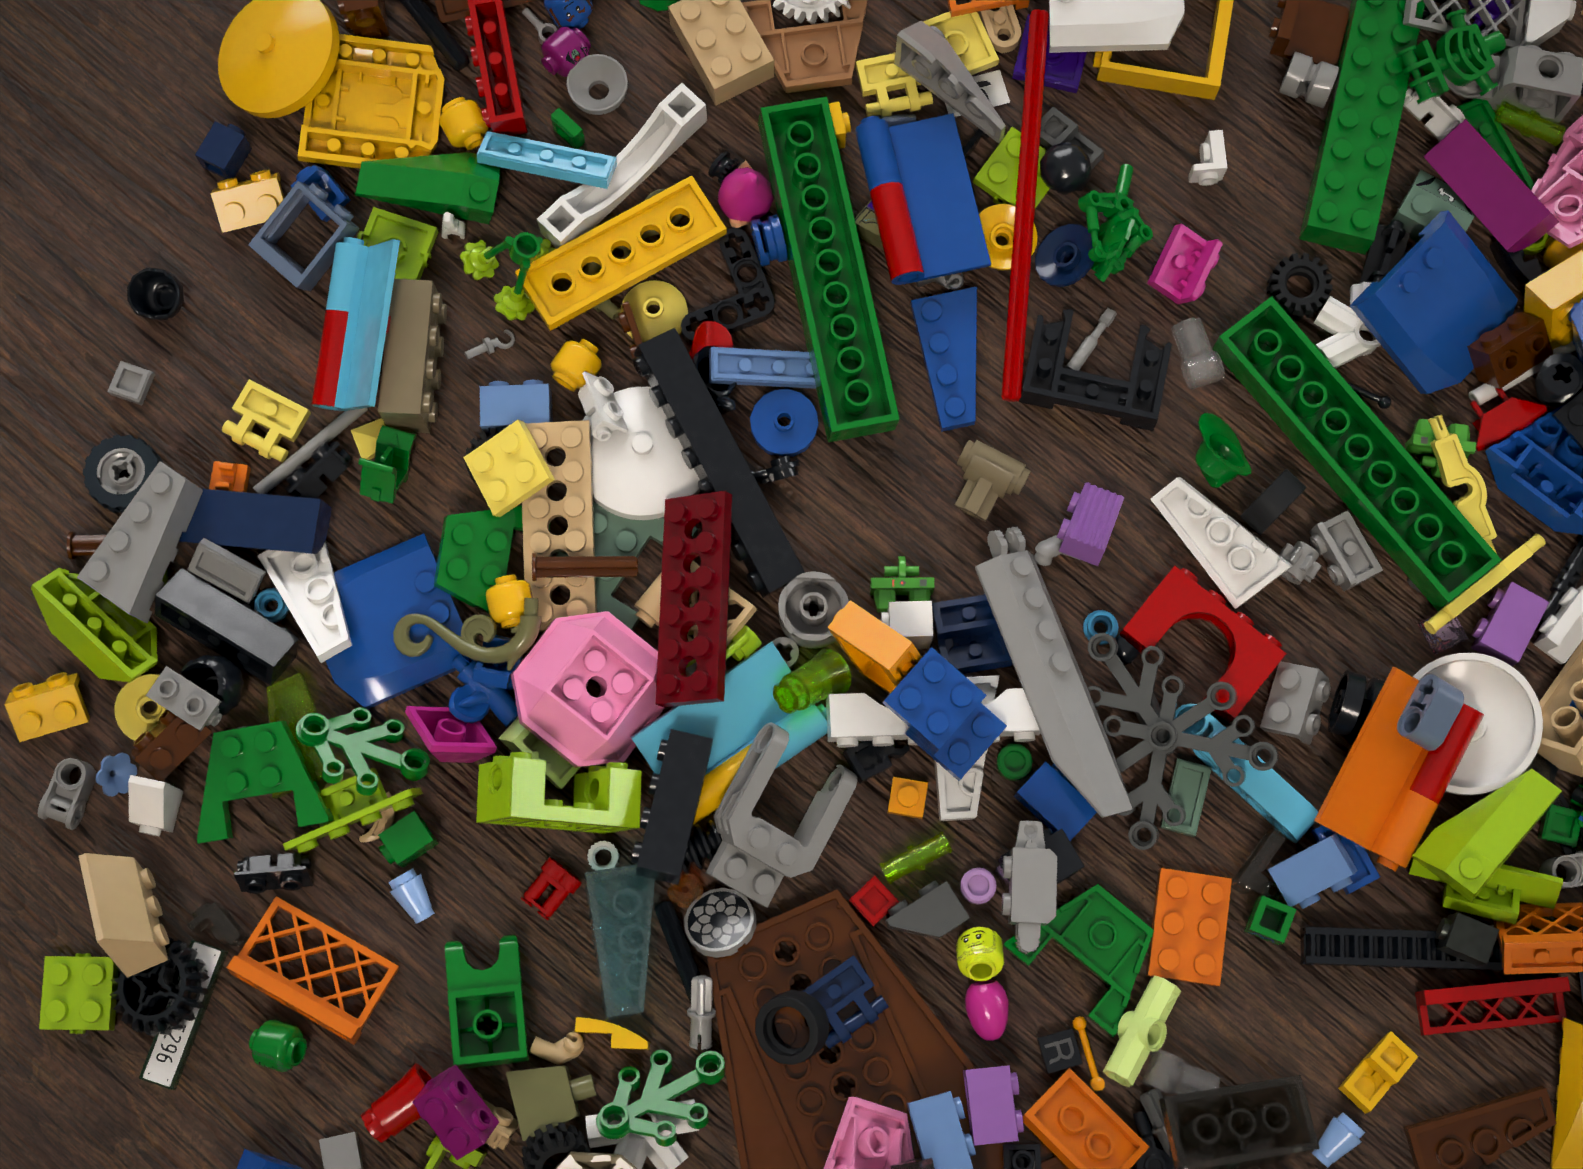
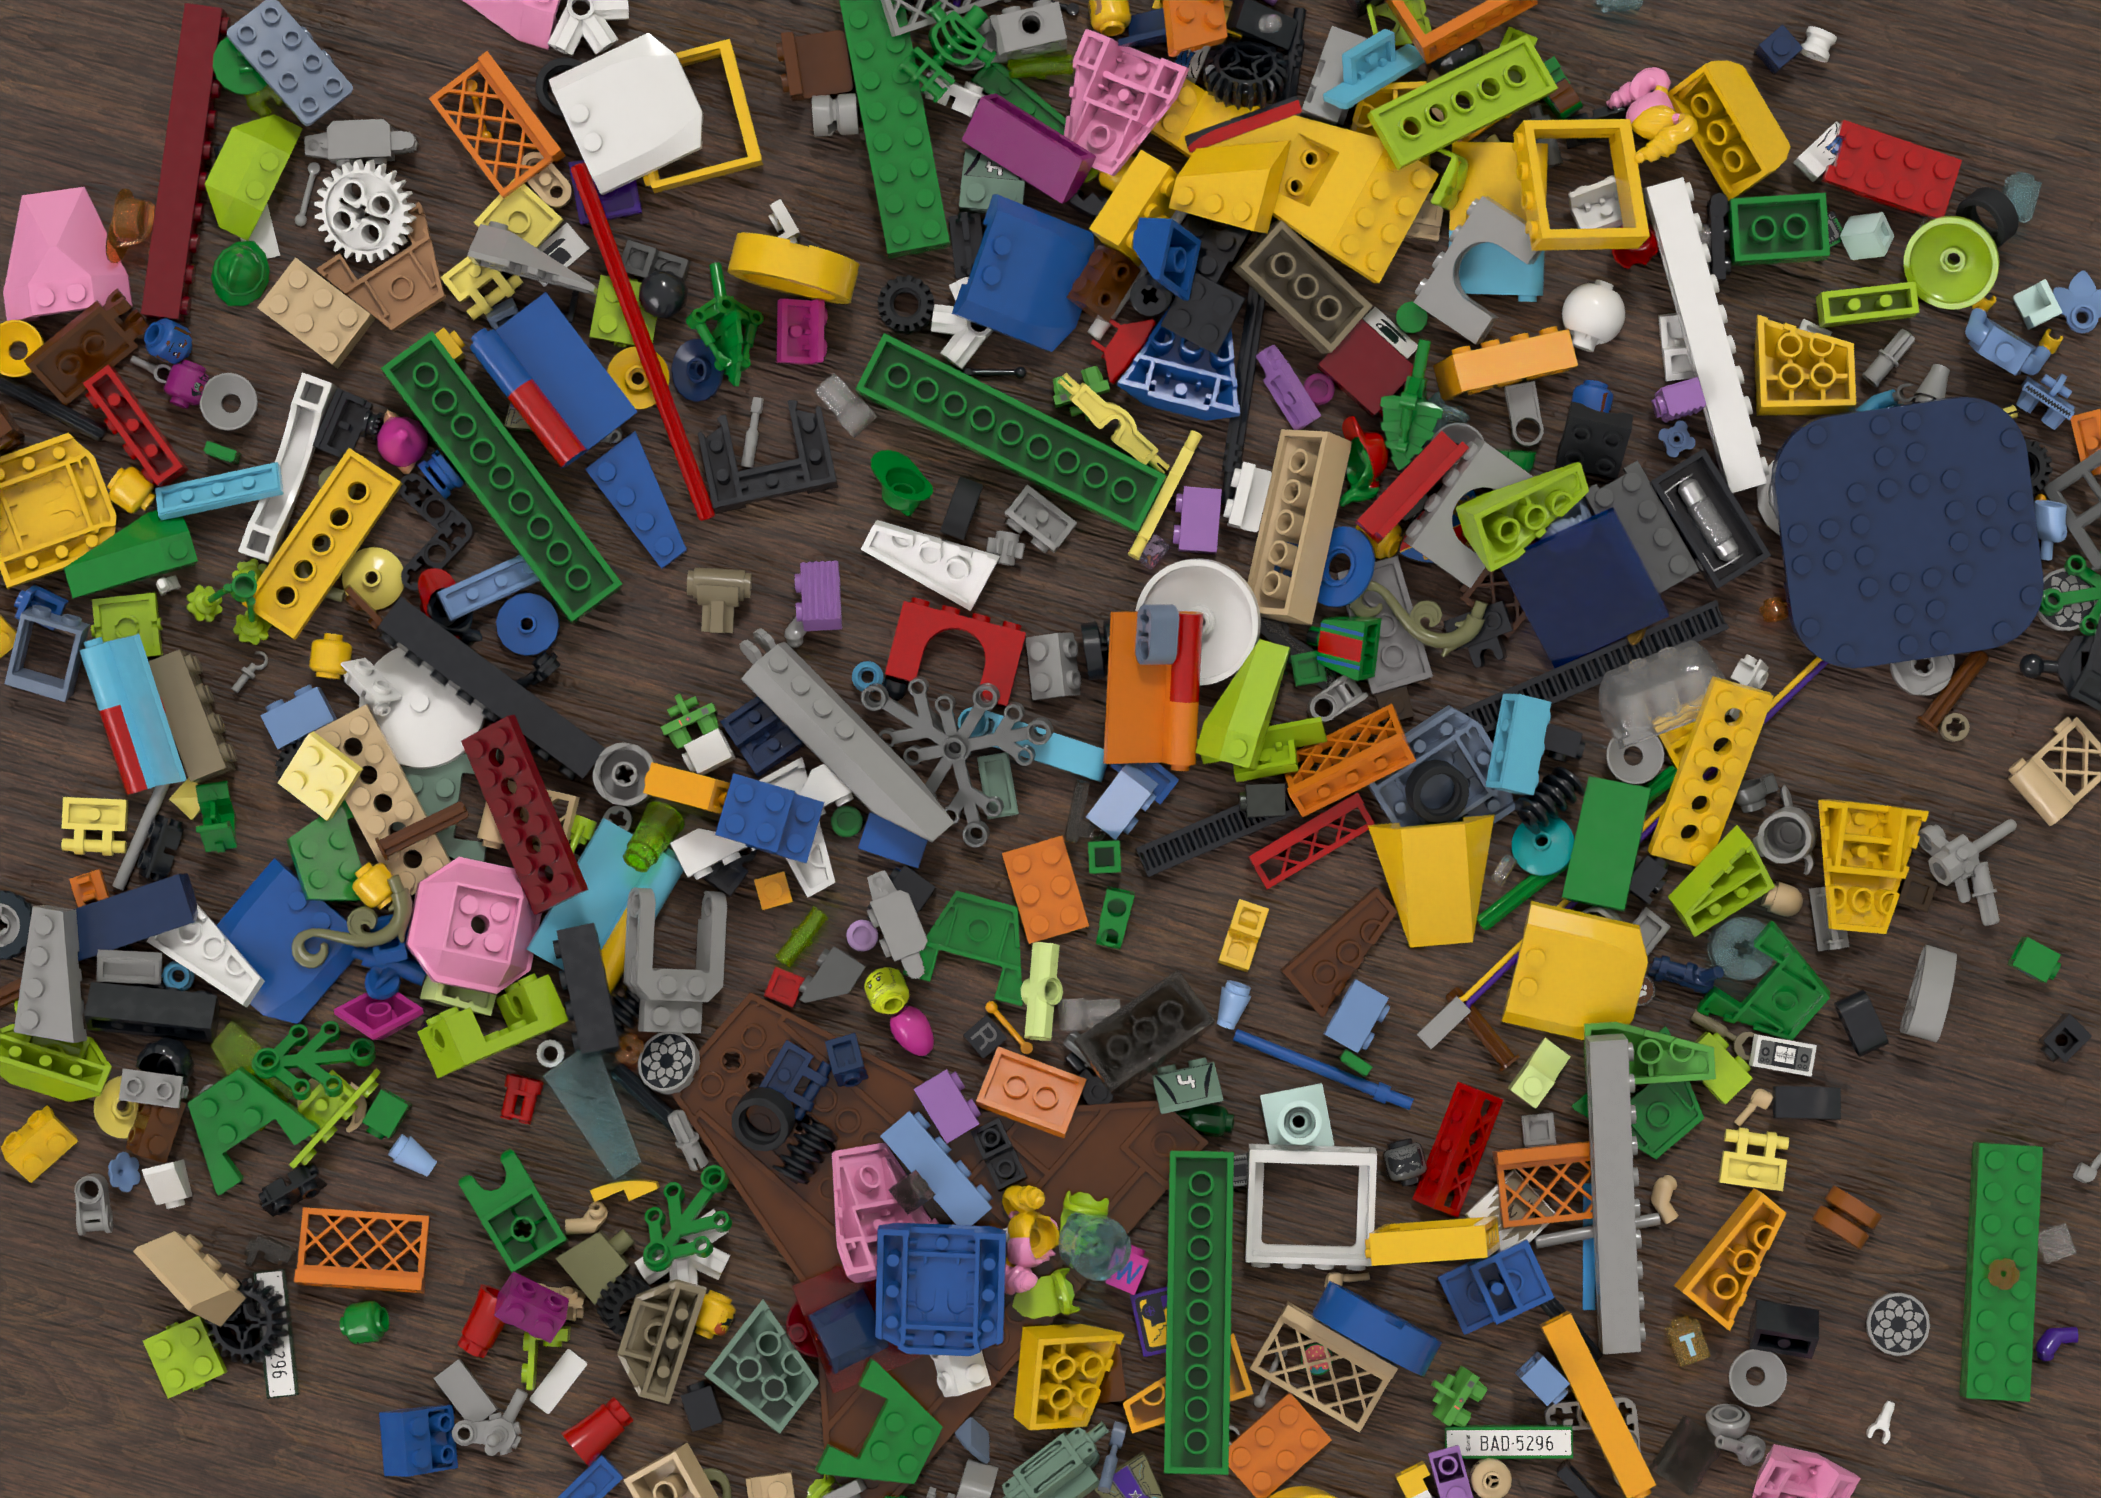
camera: 25 degrees left, 10 degrees up
(694, 152) = (342, 423): none -> black hinge
(820, 1083) = (806, 1151): none -> black piece
(906, 1007) = (846, 1060): none -> dark blue bracket
(1212, 190) = (793, 268): none -> yellow brick
(1251, 989) = (1114, 917): none -> green leg

